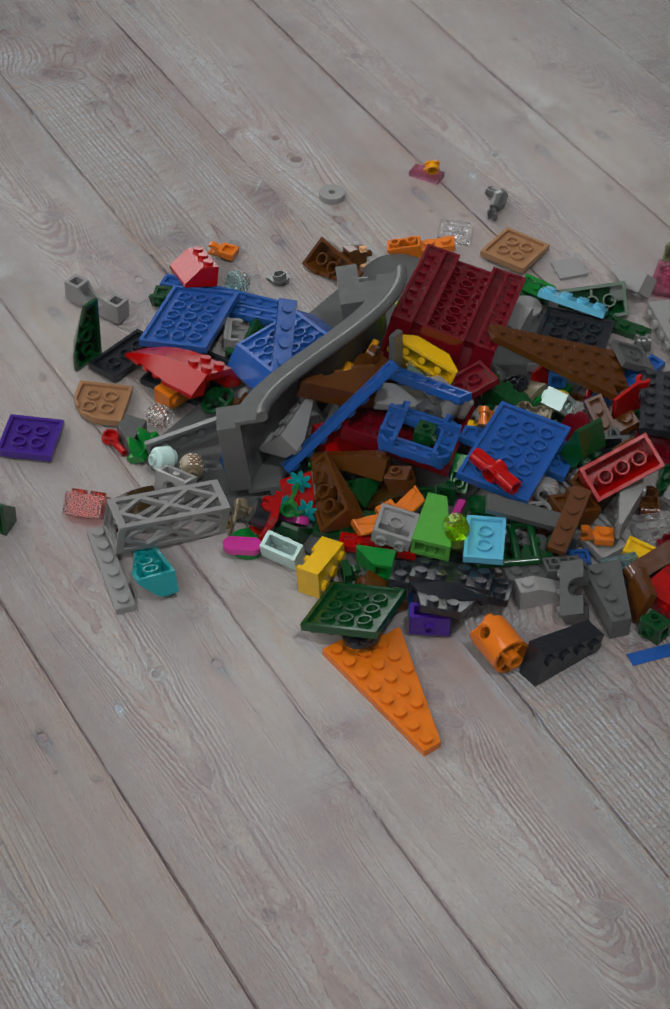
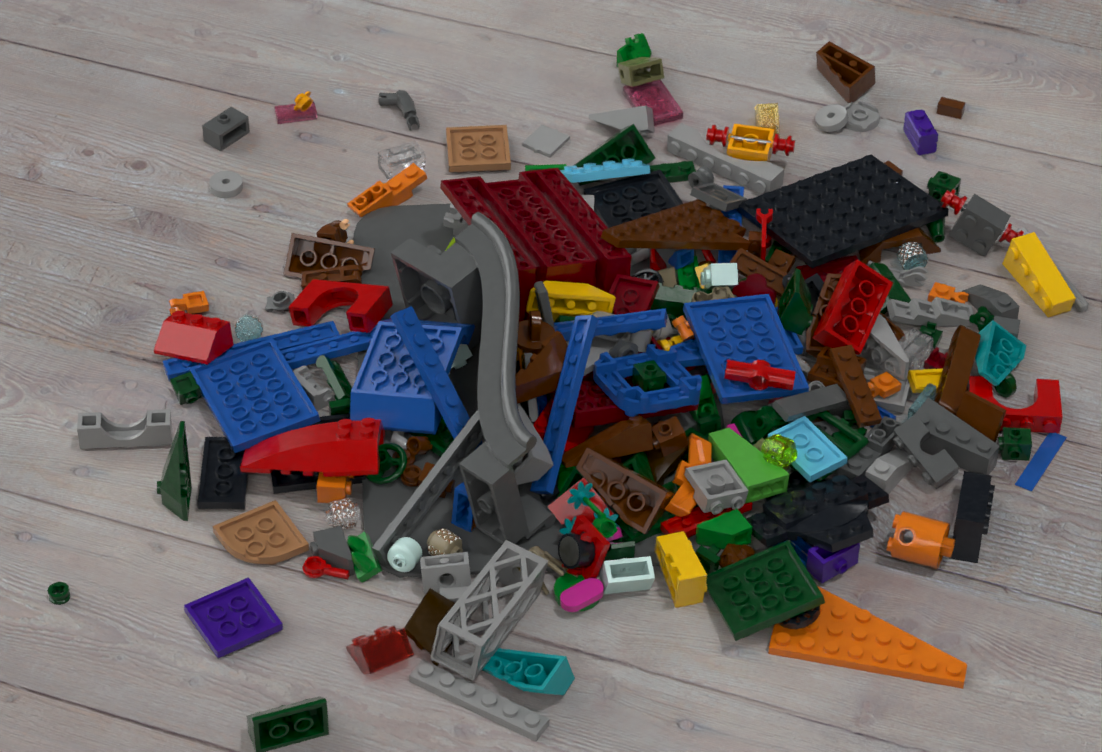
camera: 40 degrees left, 0 degrees up
(308, 291) = (367, 303): none -> red arch
(321, 278) = (348, 273): none -> reddish brown plate
(368, 161) = (226, 128): none -> dark grey brick

